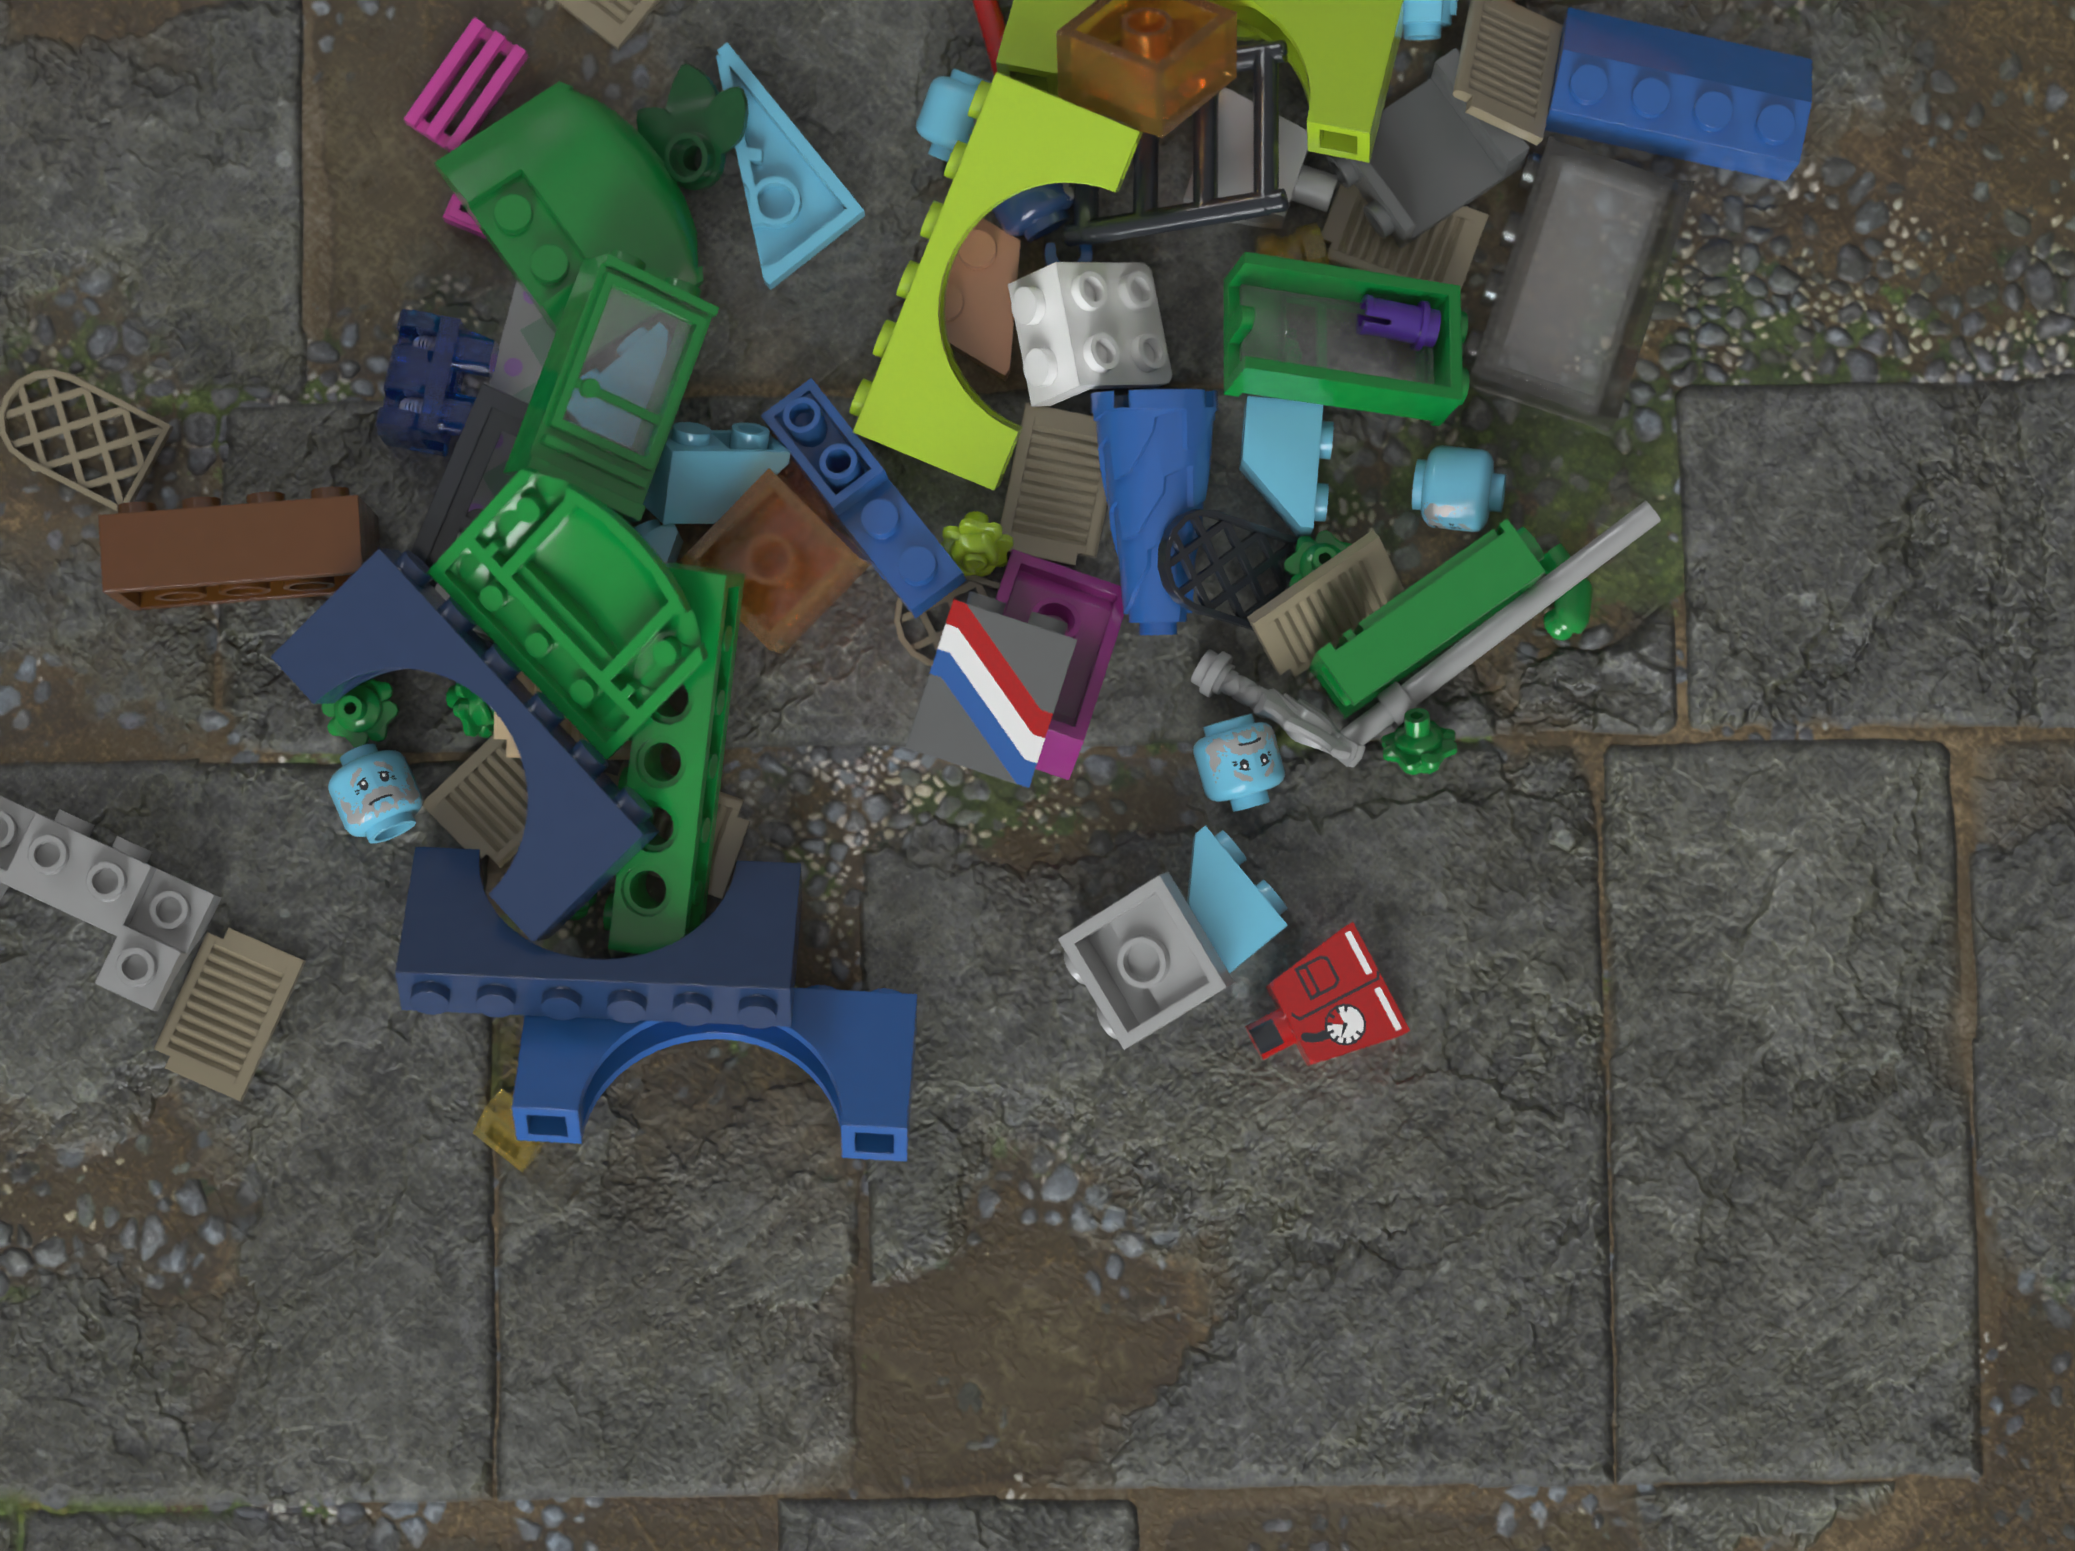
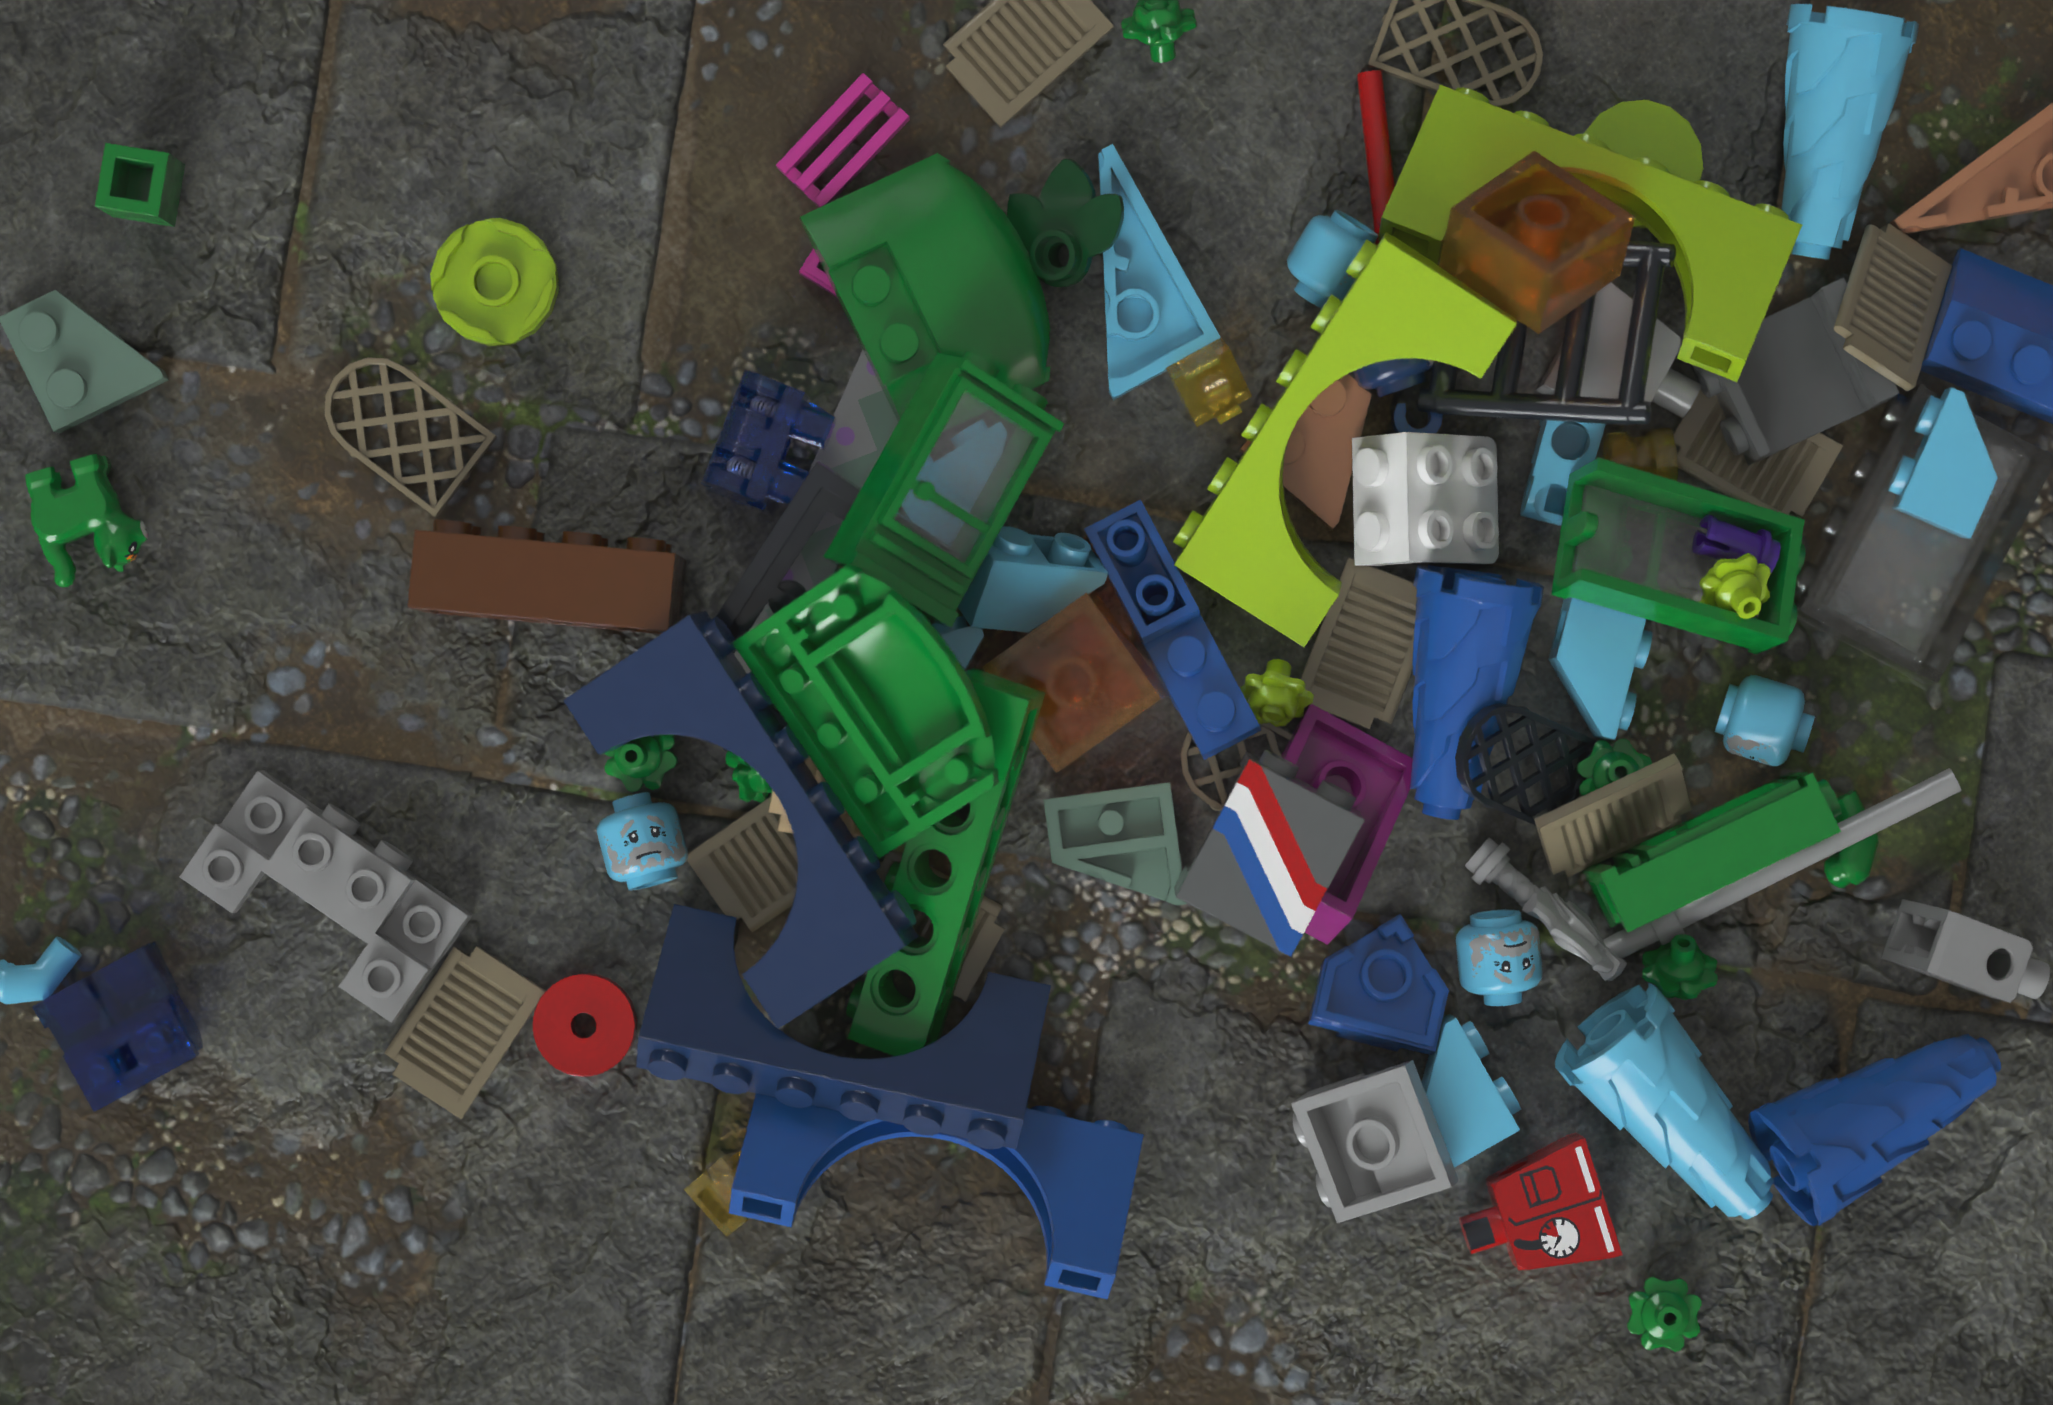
camera: 10 degrees right, 5 degrees up
(147, 278) = (494, 282): none -> lime tile
(319, 980) = (555, 1028): none -> red piece
(846, 711) = (1119, 838): none -> sand green wing
(860, 255) = (1210, 383): none -> clear yellow tile
(1130, 818) = (1381, 992): none -> blue plate
(1212, 257) = (1557, 453): none -> medium azure leg
(1403, 354) = (1737, 585): none -> lime plant
(1411, 857) = (1652, 1083): none -> medium azure cone
(1465, 1087) = (1664, 1314): none -> green plant
(1590, 212) = (1950, 471): none -> medium azure slope
(1612, 873) = (1853, 1129): none -> blue cone
(1695, 678) = (1965, 953): none -> light grey torso

